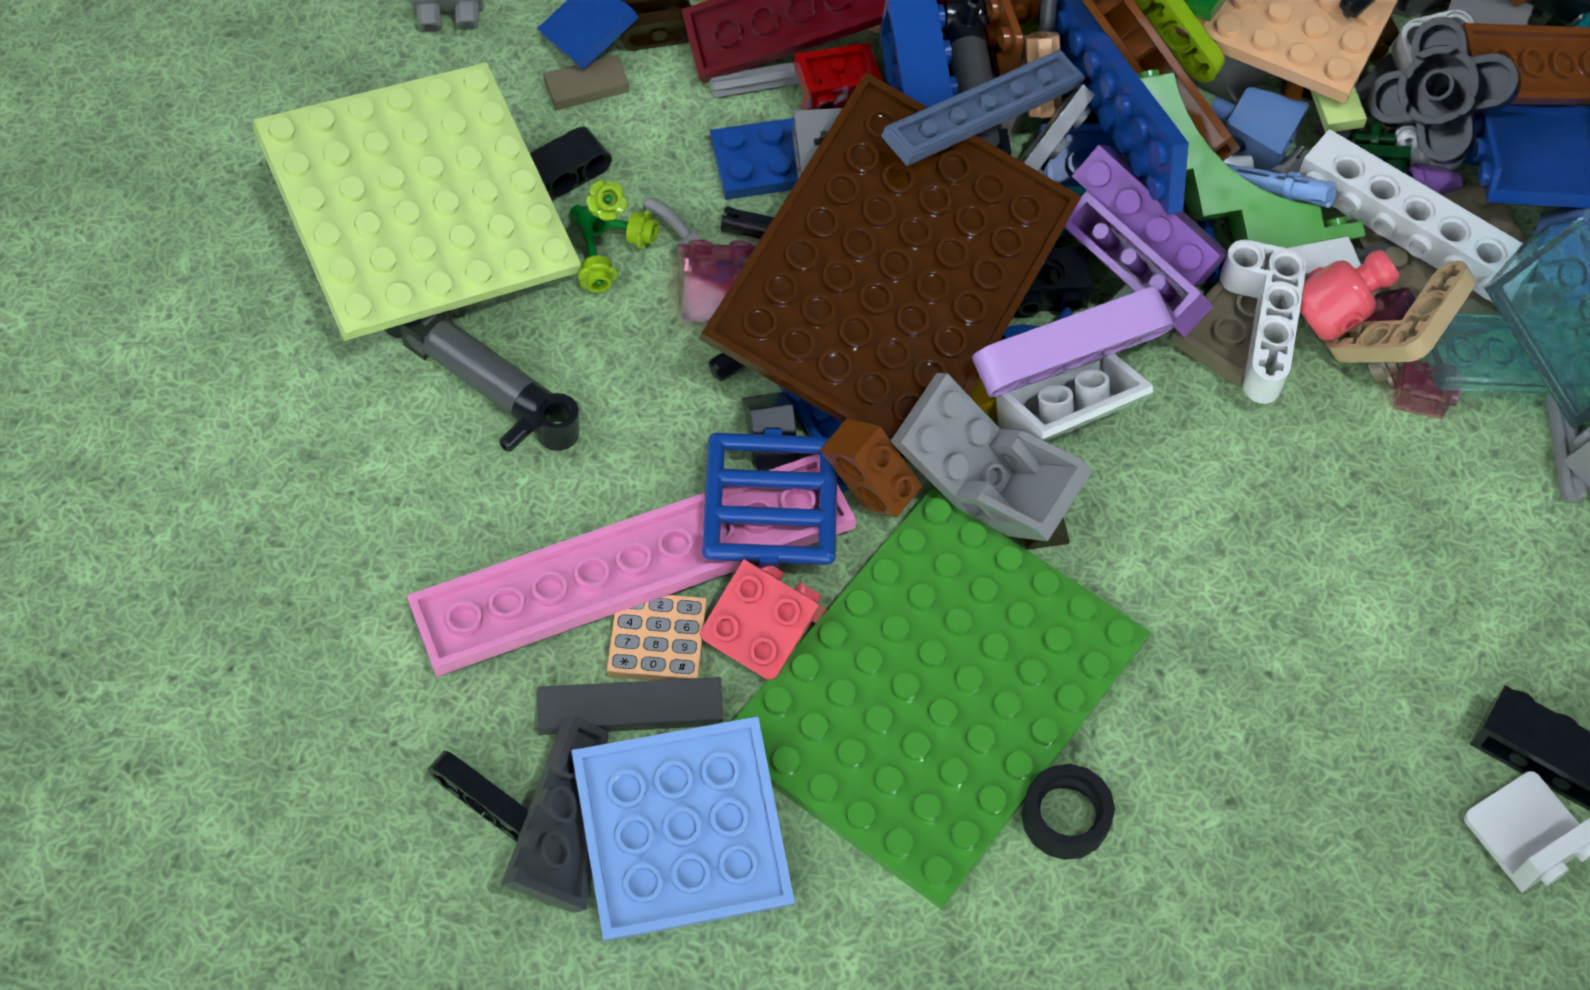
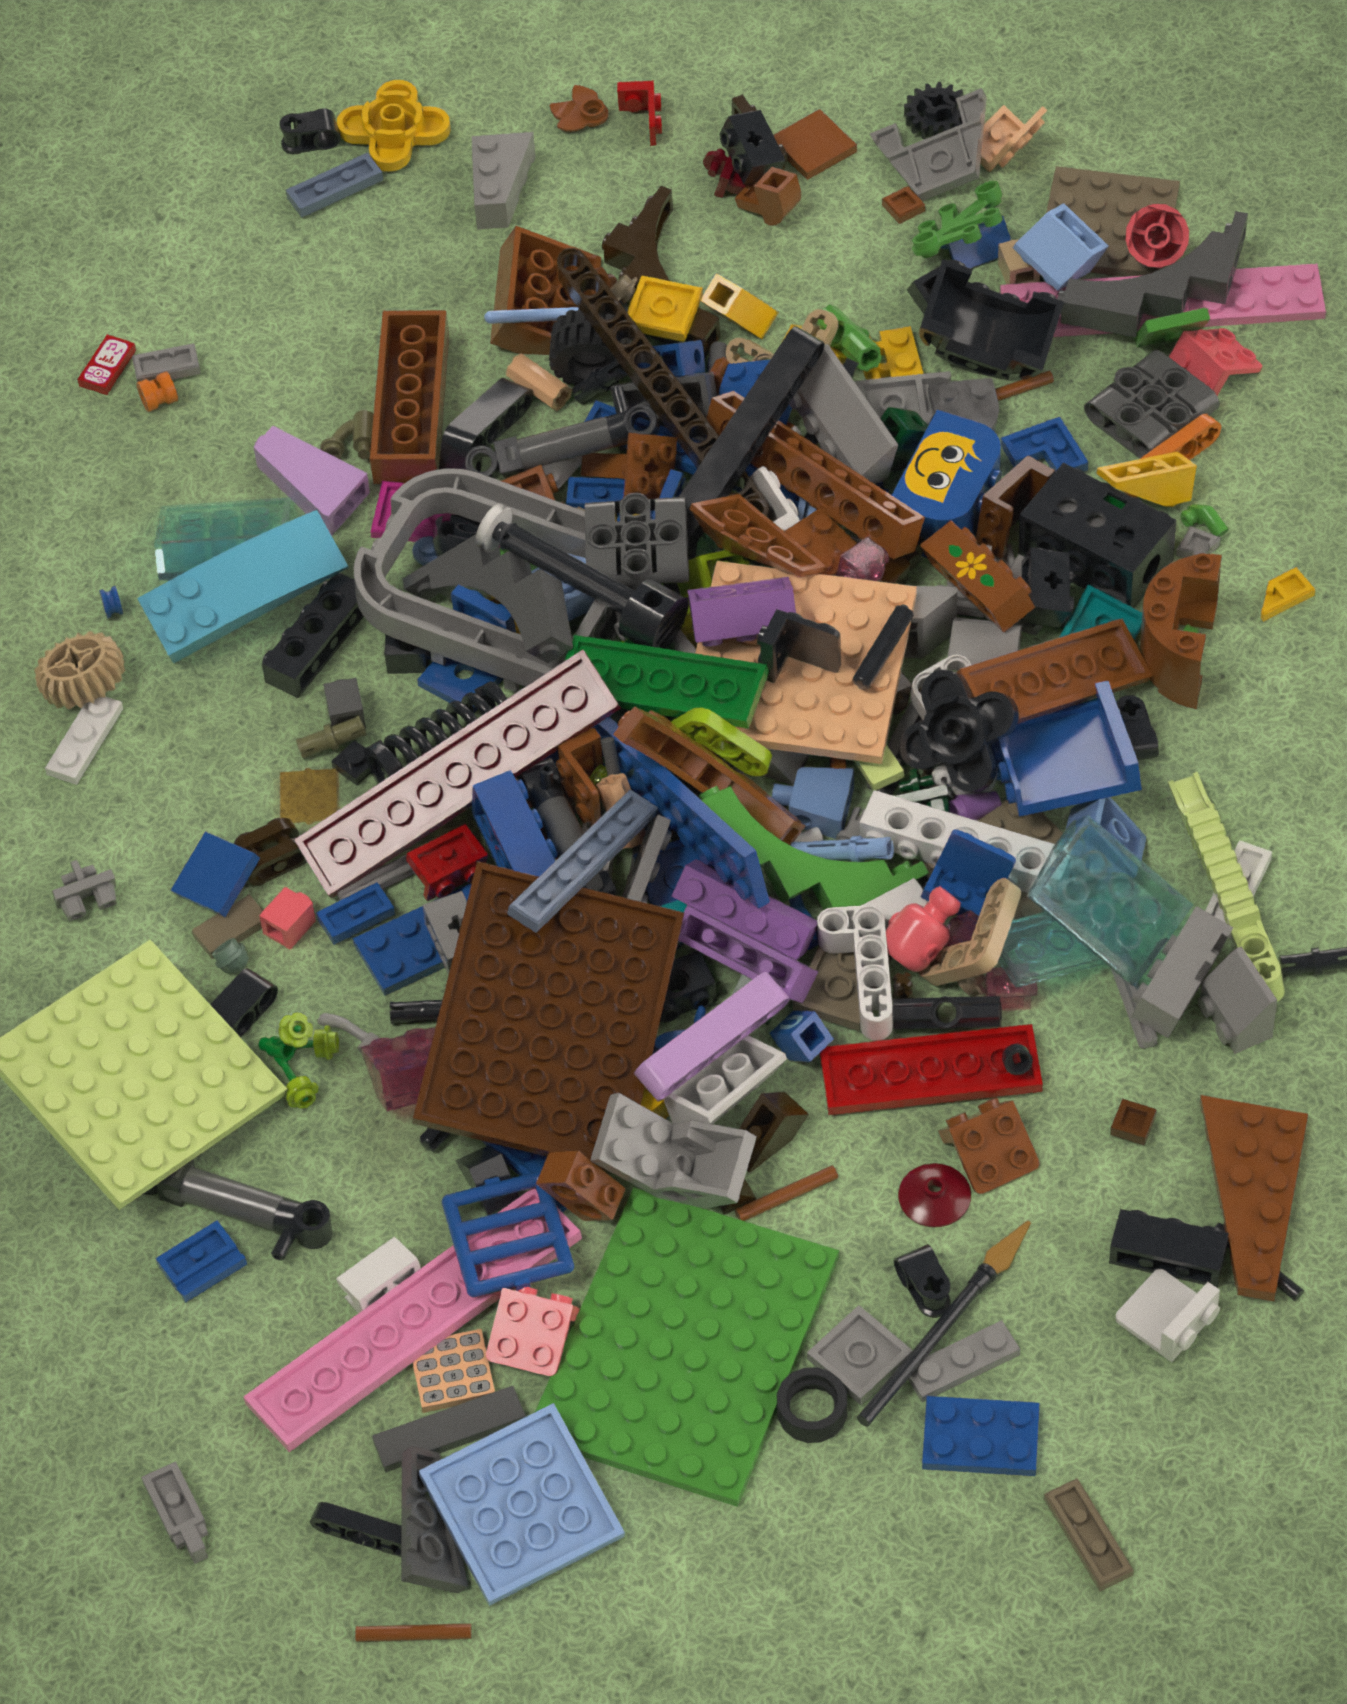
camera: 10 degrees left, 5 degrees down
(282, 706) = (177, 1509): none -> light grey hinge
(420, 426) = (201, 1261): none -> blue plate
(502, 947) = (413, 1632): none -> dark orange bar
(574, 111) = (231, 956): none -> sand green plate
(609, 499) = (377, 1274): none -> white hinge
(648, 88) = (288, 917): none -> coral brick
(722, 105) = (355, 913): none -> blue plate
(1106, 546) = (786, 1193): none -> dark orange bar
(1116, 460) = (775, 1122): none -> dark brown slope
(1143, 766) = (859, 1354): none -> light grey plate
(1174, 372) = (801, 1036): none -> blue brick
(1244, 699) = (925, 1280): none -> black piece
(1263, 812) = (964, 1360): none -> light grey plate
(1264, 915) = (980, 1436): none -> blue plate
(1275, 615) = (930, 1207): none -> dark red dish
(1303, 355) = (903, 986): none -> dark brown piece
(1312, 454) = (926, 1070): none -> red plate
(1334, 701) = (996, 1261): none -> black piece
(1363, 561) = (991, 1145): none -> dark orange bracket
(1376, 403) = (970, 1012): none -> black piece
(1419, 241) = (968, 870): none -> blue bracket
(1428, 471) = (1024, 1055): none -> black hinge
(1538, 584) = (1133, 1122): none -> reddish brown plate

